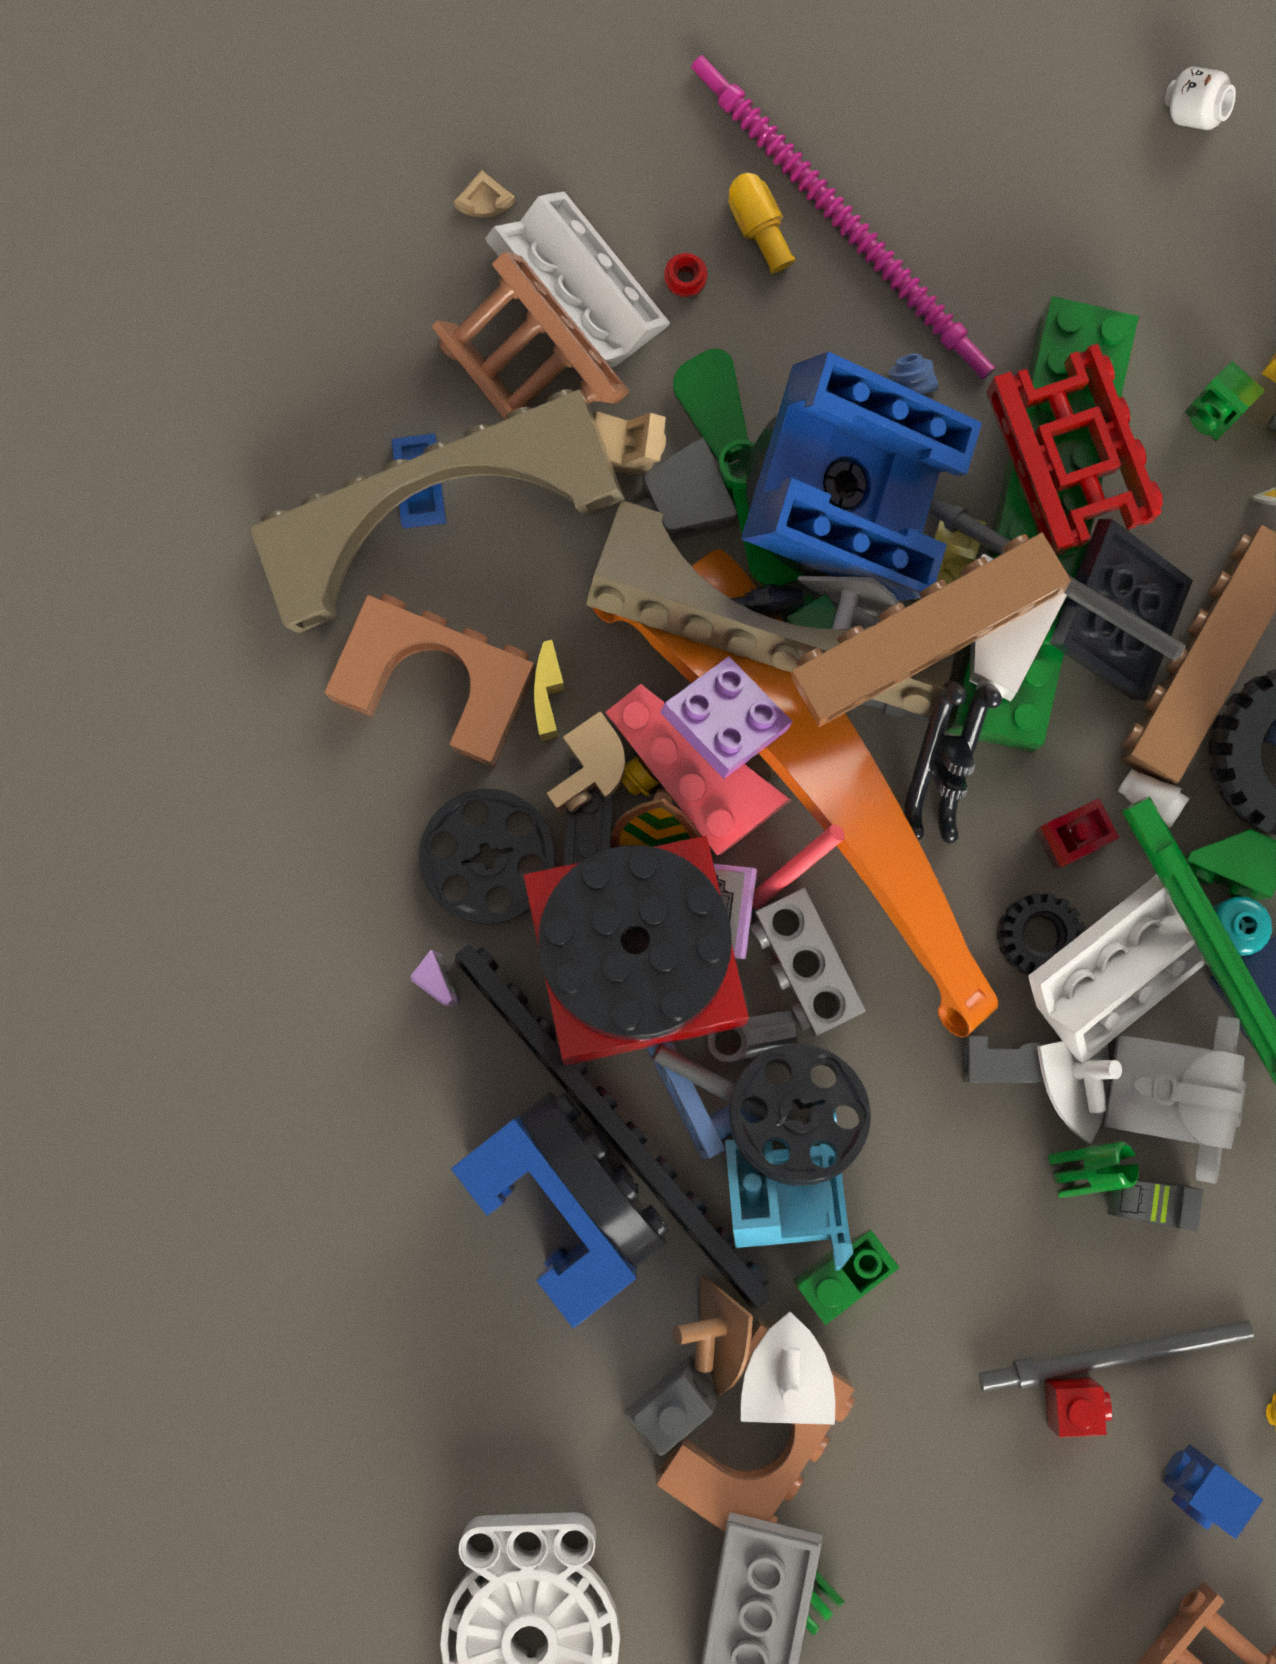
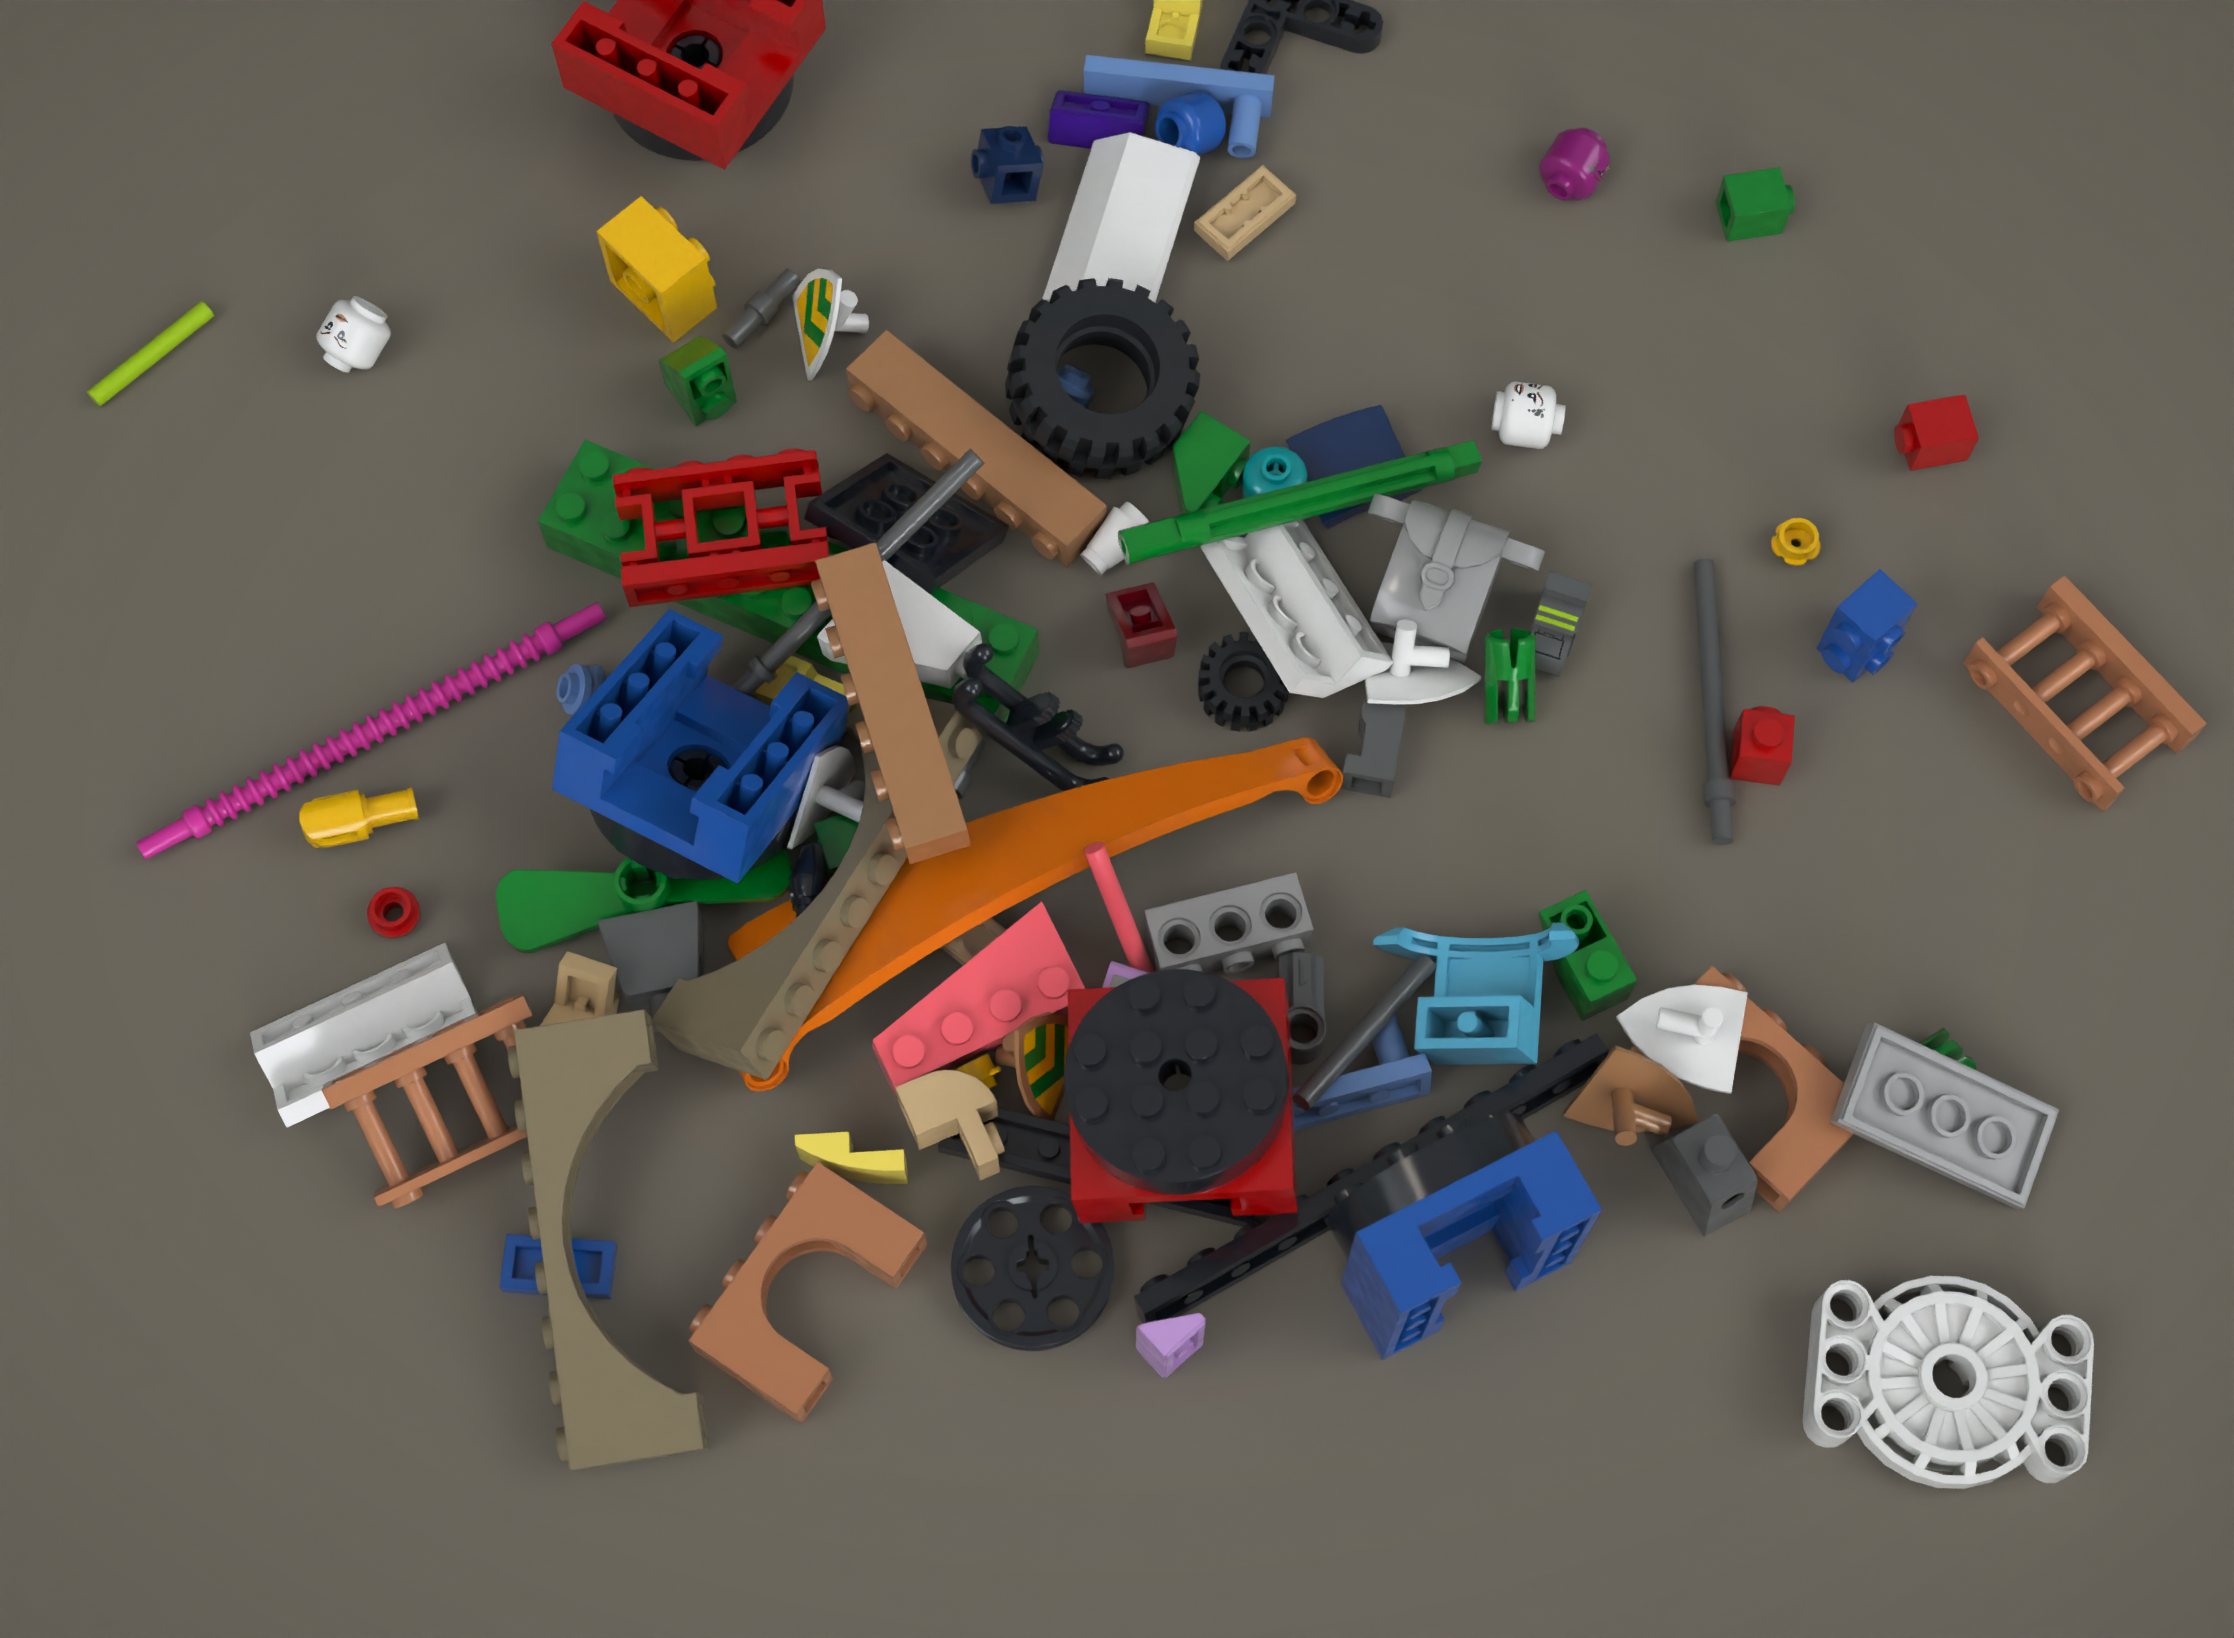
camera: 80 degrees left, 15 degrees down
(484, 198) = (230, 1125): tan tile -> none
(726, 717) = (939, 938): medium lavender plate -> none
(796, 1136) = (1422, 960): black wedge -> none

